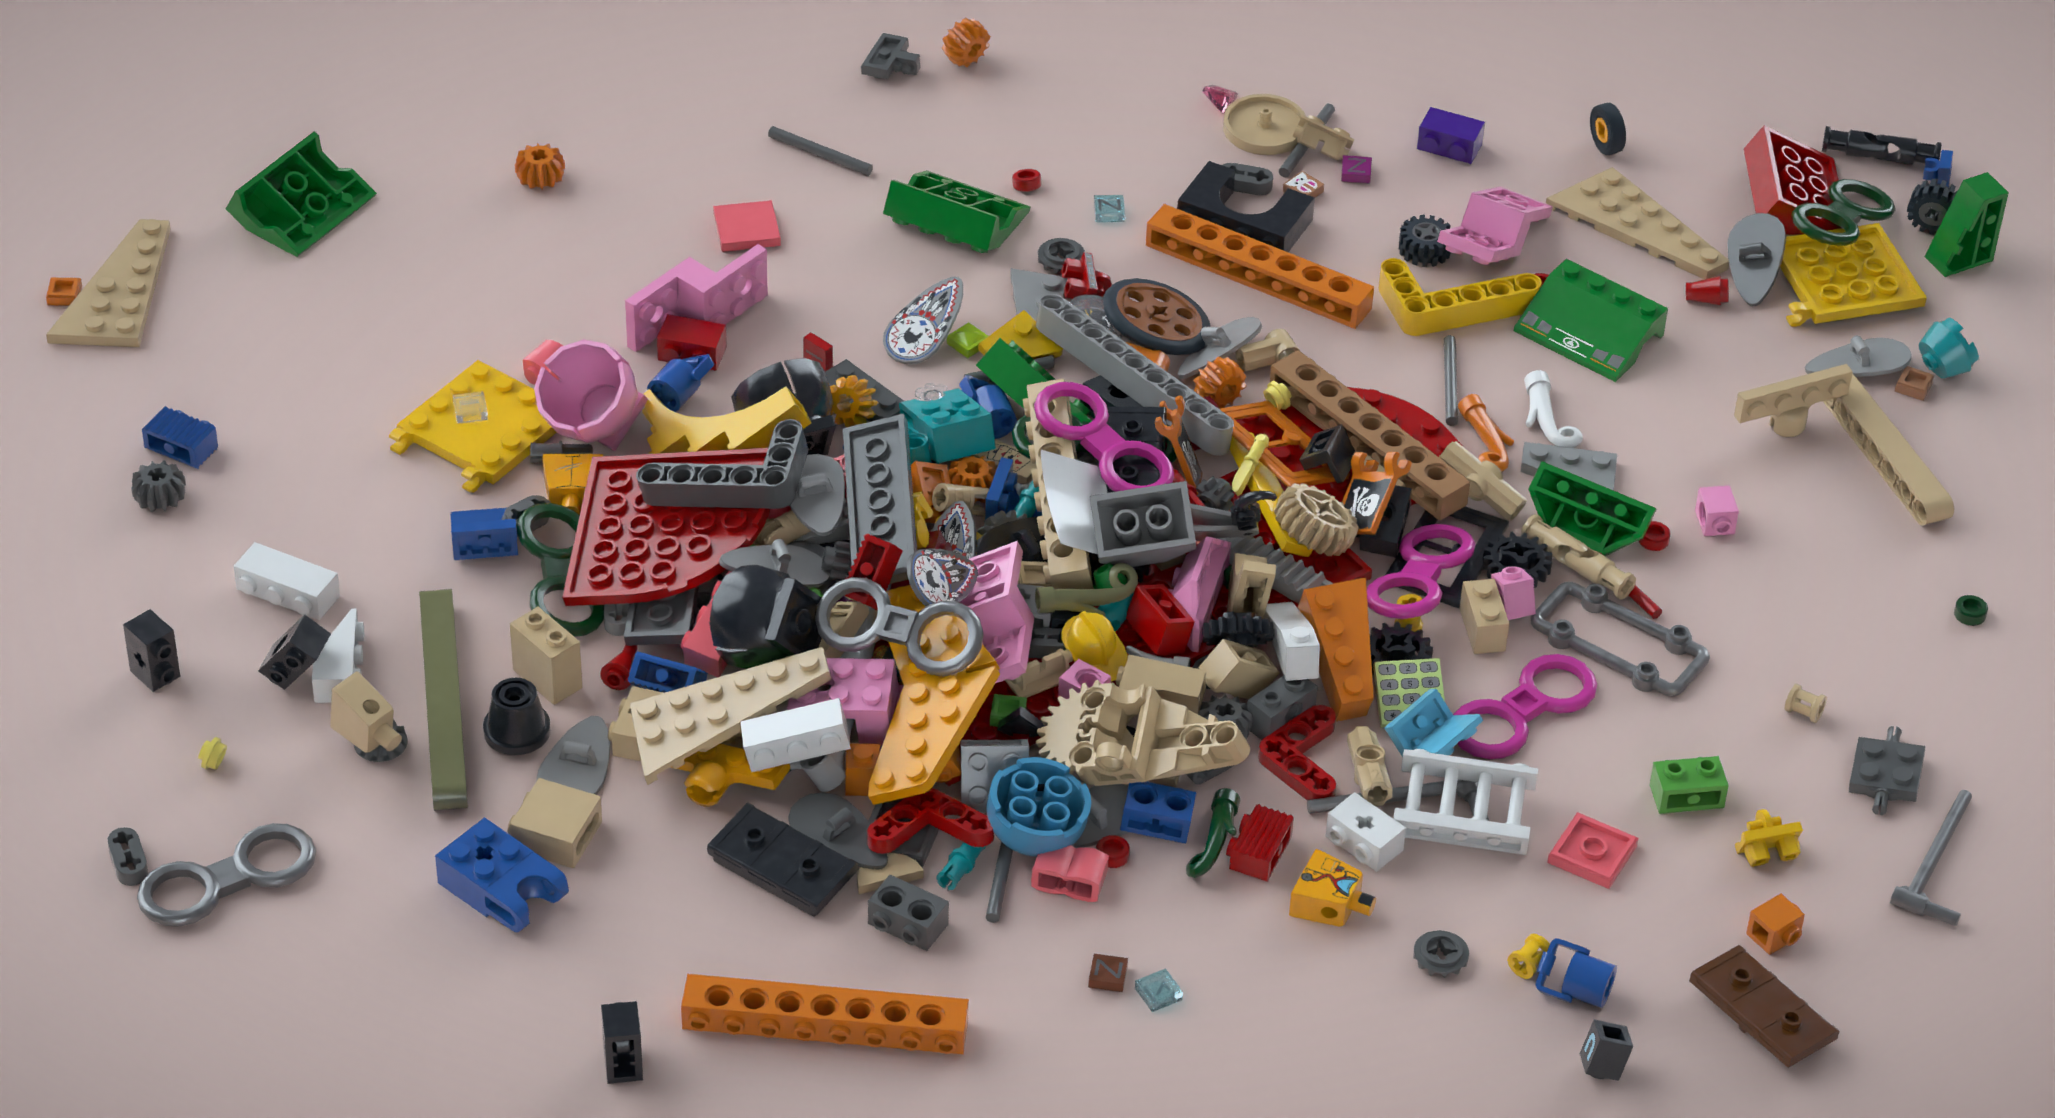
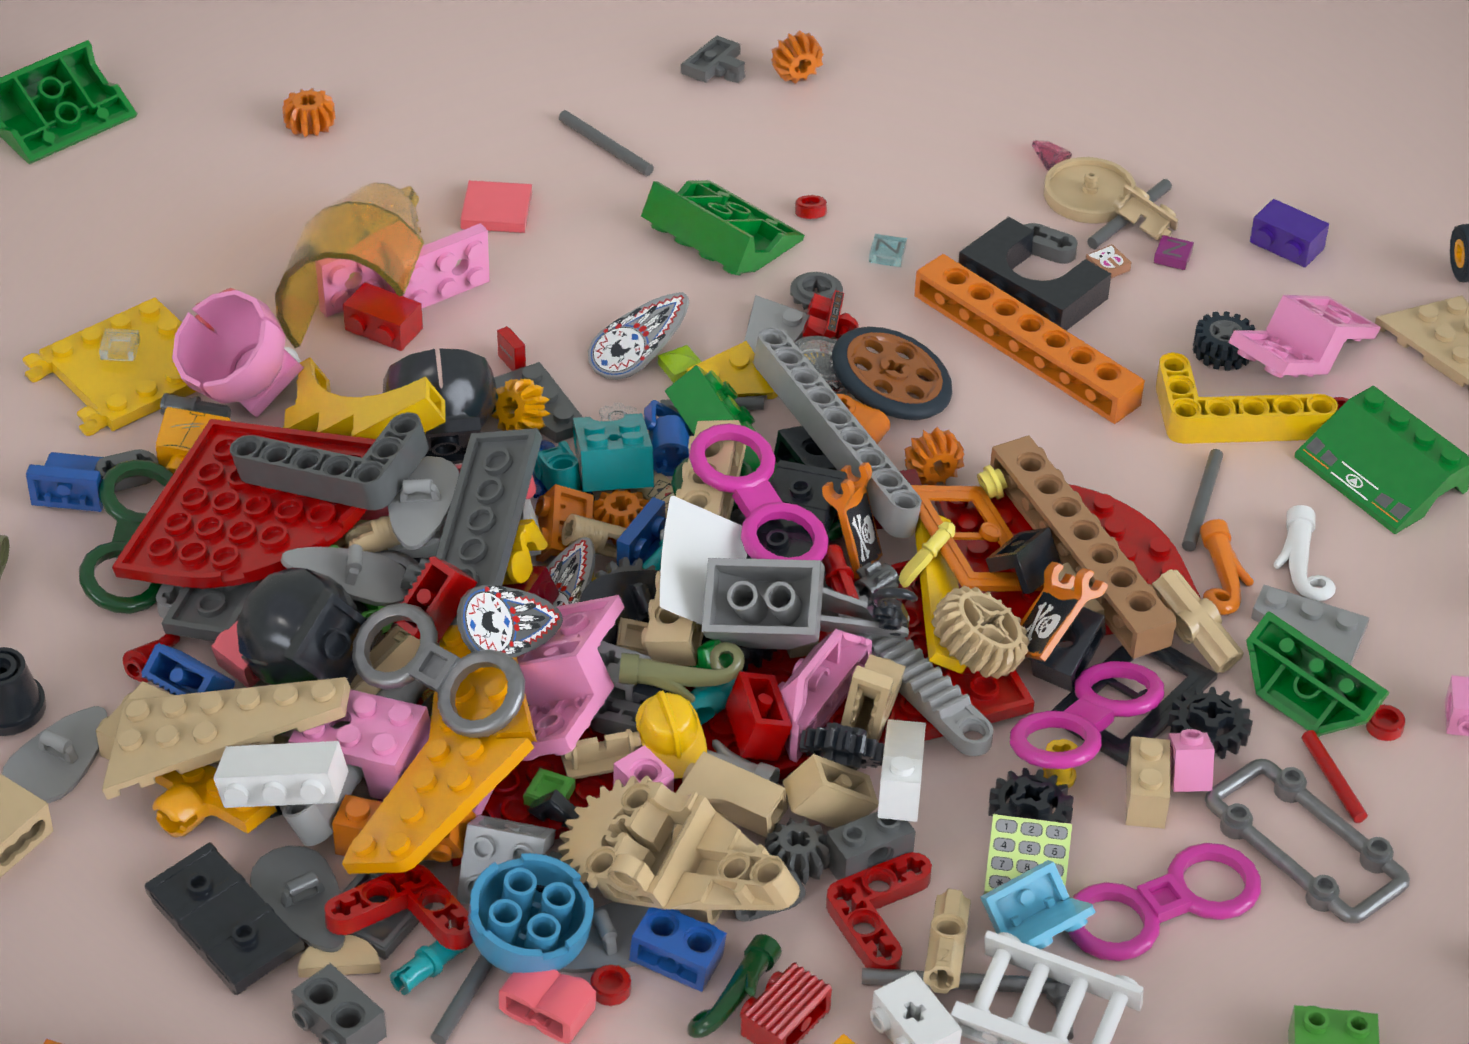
camera: 15 degrees right, 0 degrees up
(546, 655) = (66, 628): tan piece -> none
(653, 264) = (367, 226): none -> clear yellow windscreen
(680, 380) = (349, 354): blue piece -> none
(1220, 342) = (953, 413): light grey shield -> none
(1266, 352) = (995, 431): tan piece -> none
(1342, 630) = (961, 772): orange wedge -> none
(1580, 558) = (1285, 732): tan piece -> none

